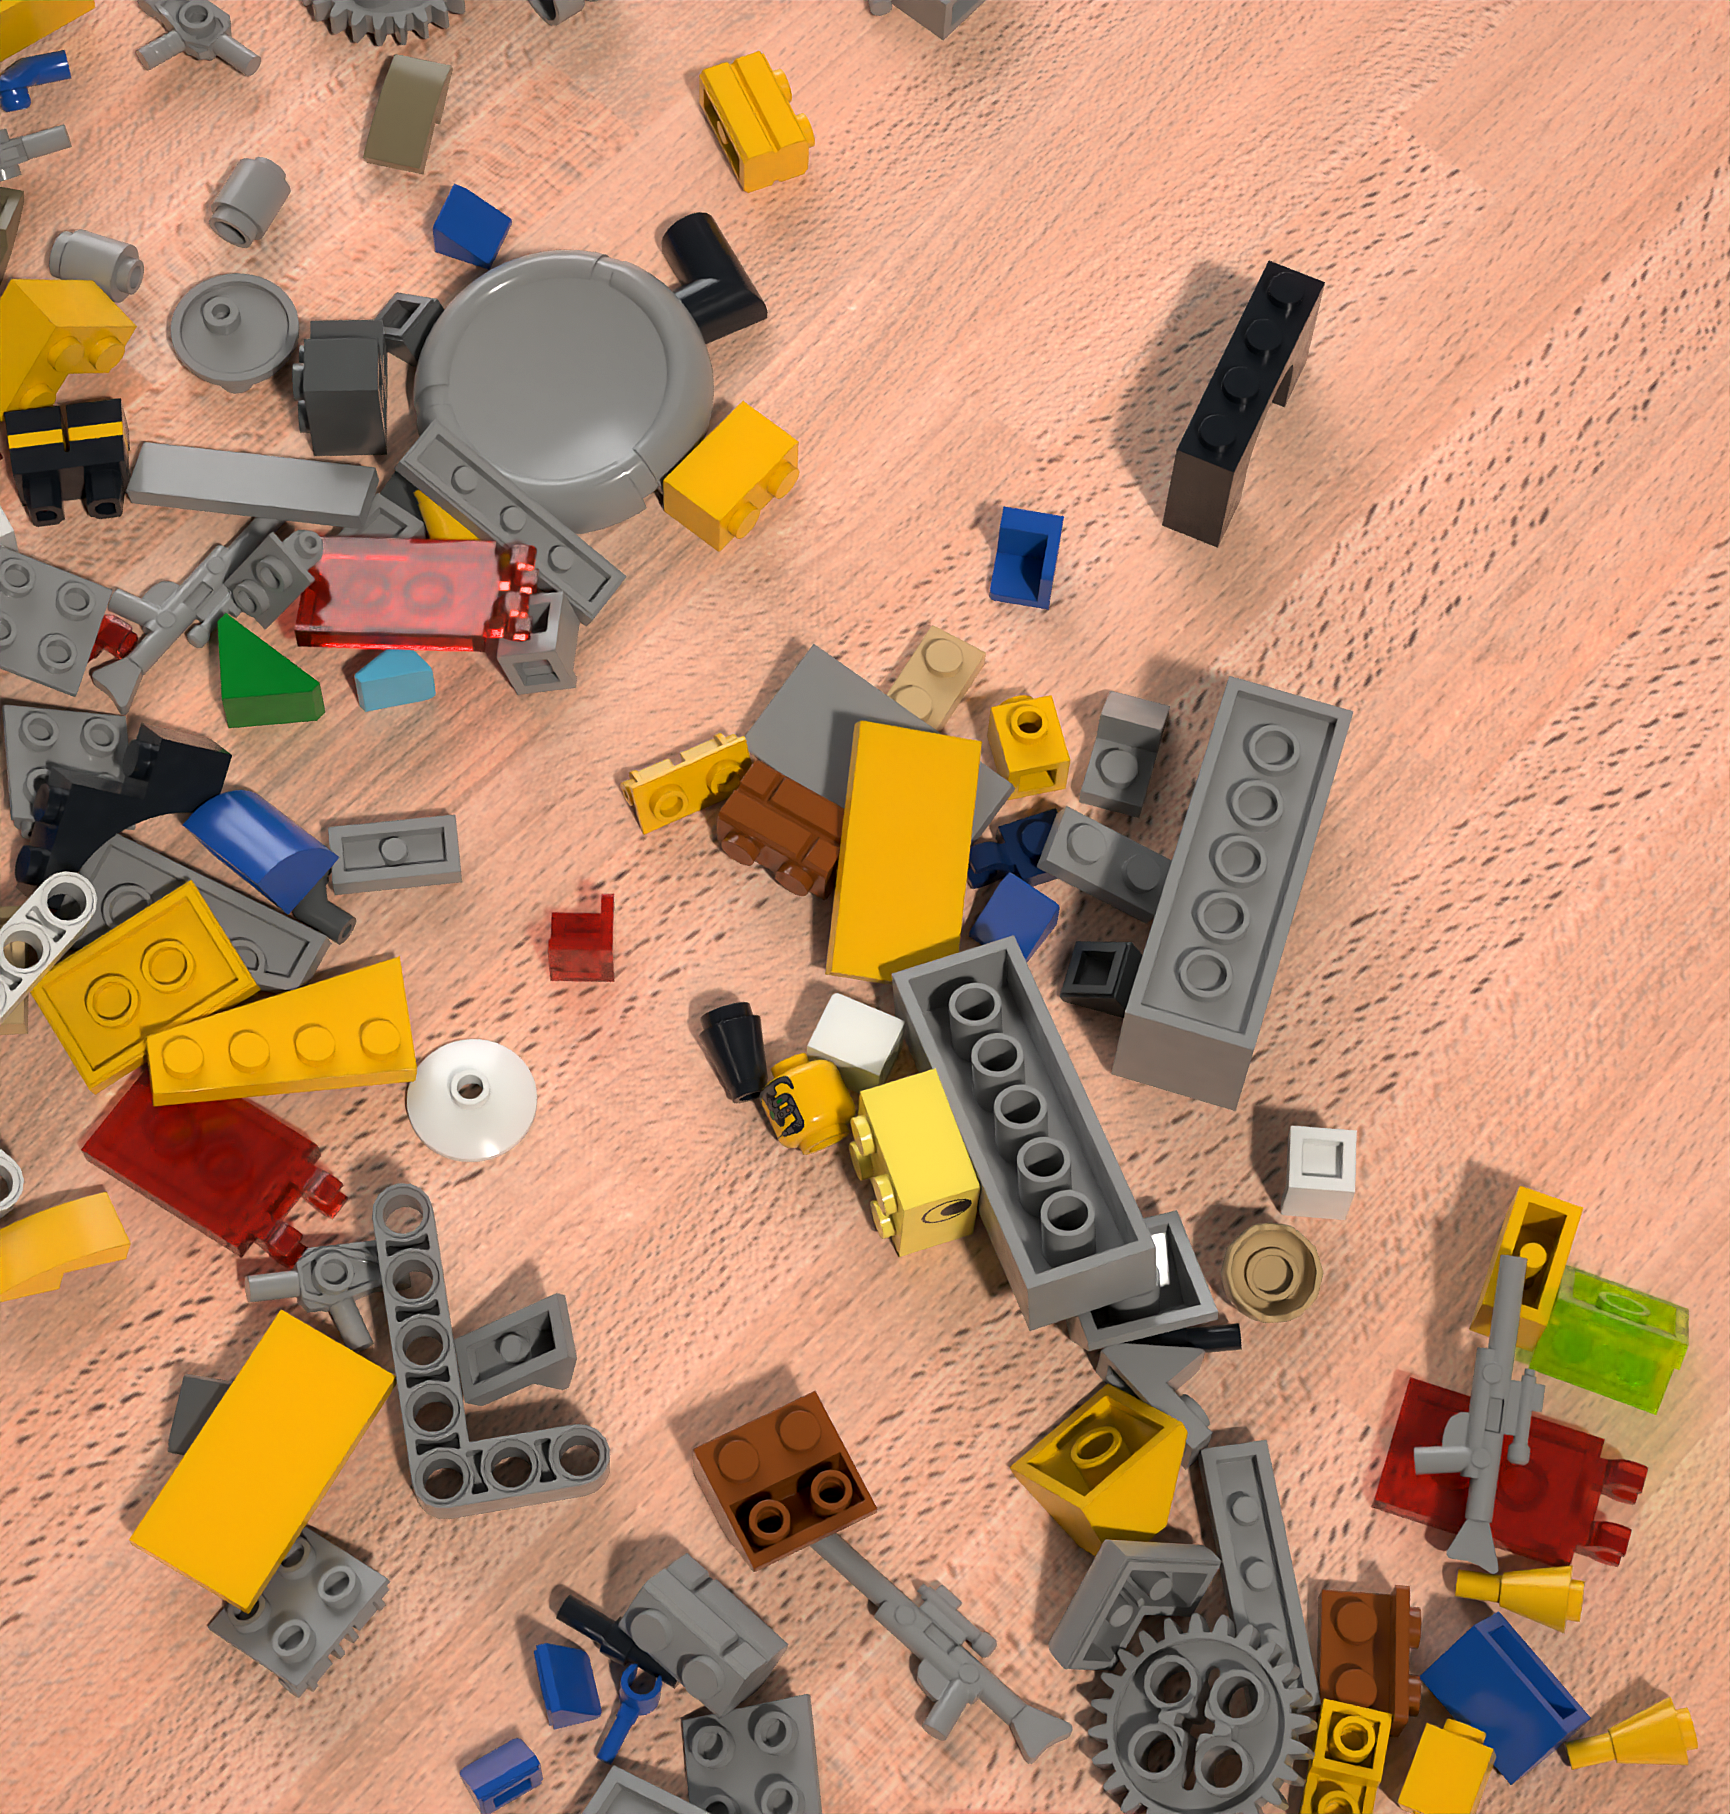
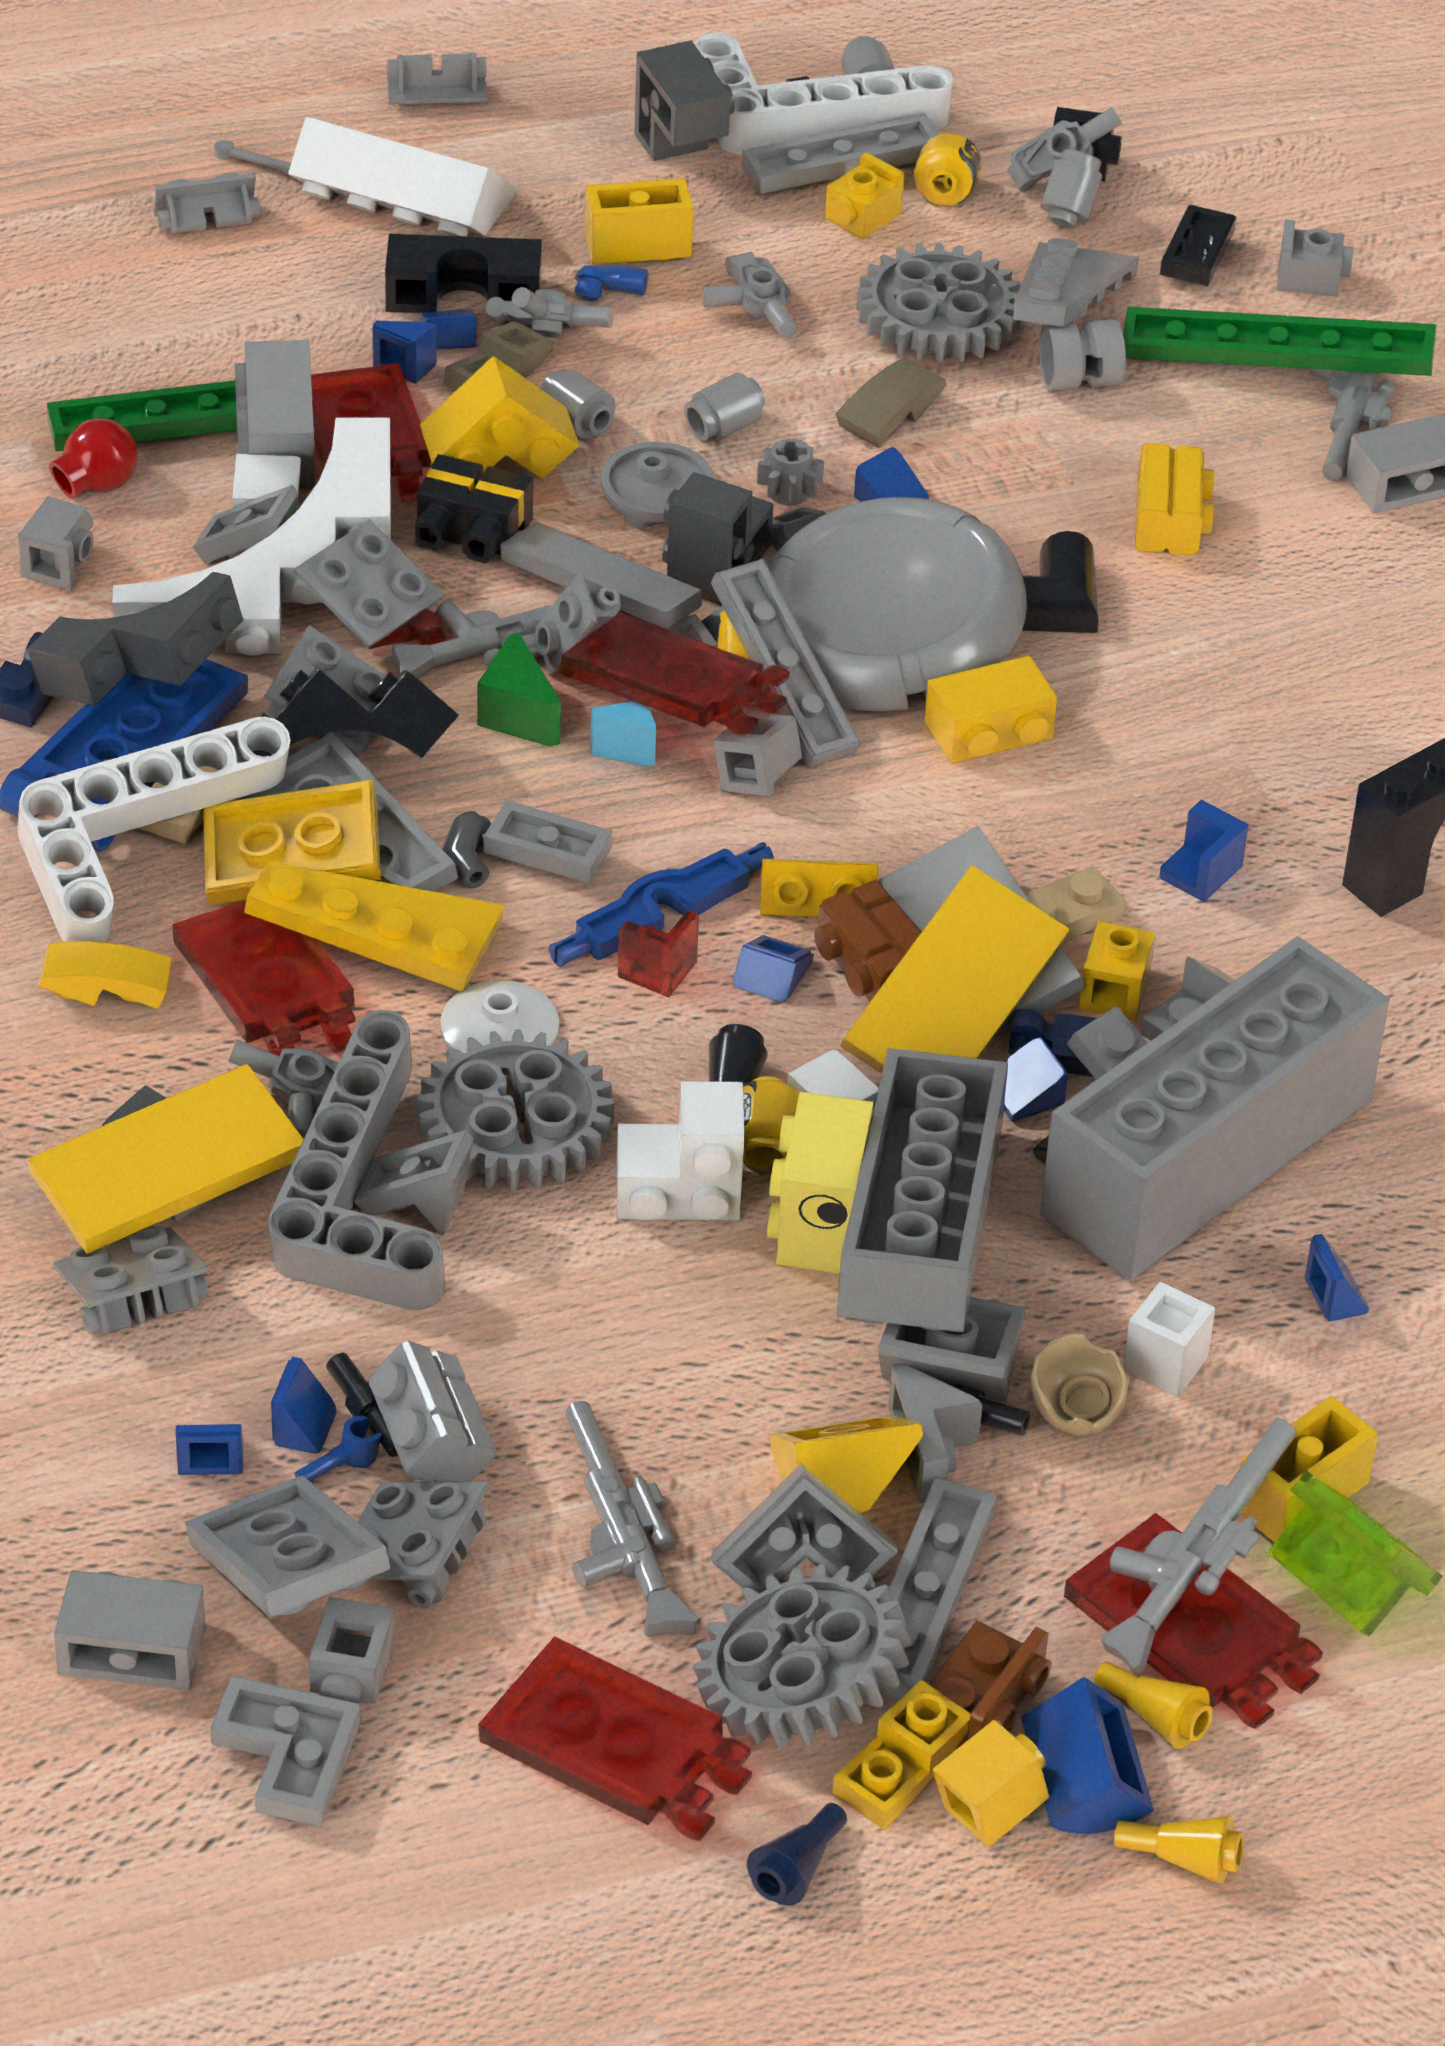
camera: 30 degrees right, 20 degrees down
(261, 846) = (441, 786): blue brick -> none
(364, 258) = (790, 472): none -> light grey gear
(529, 898) = (690, 888): none -> blue piece
(604, 1175) = (555, 1096): none -> light grey gear
(696, 898) = (771, 967): none -> slope
(767, 1201) = (688, 1166): none -> white brick
(781, 1482) = (566, 1336): dark orange slope -> none
(1417, 1021) = (1332, 1282): none -> blue slope

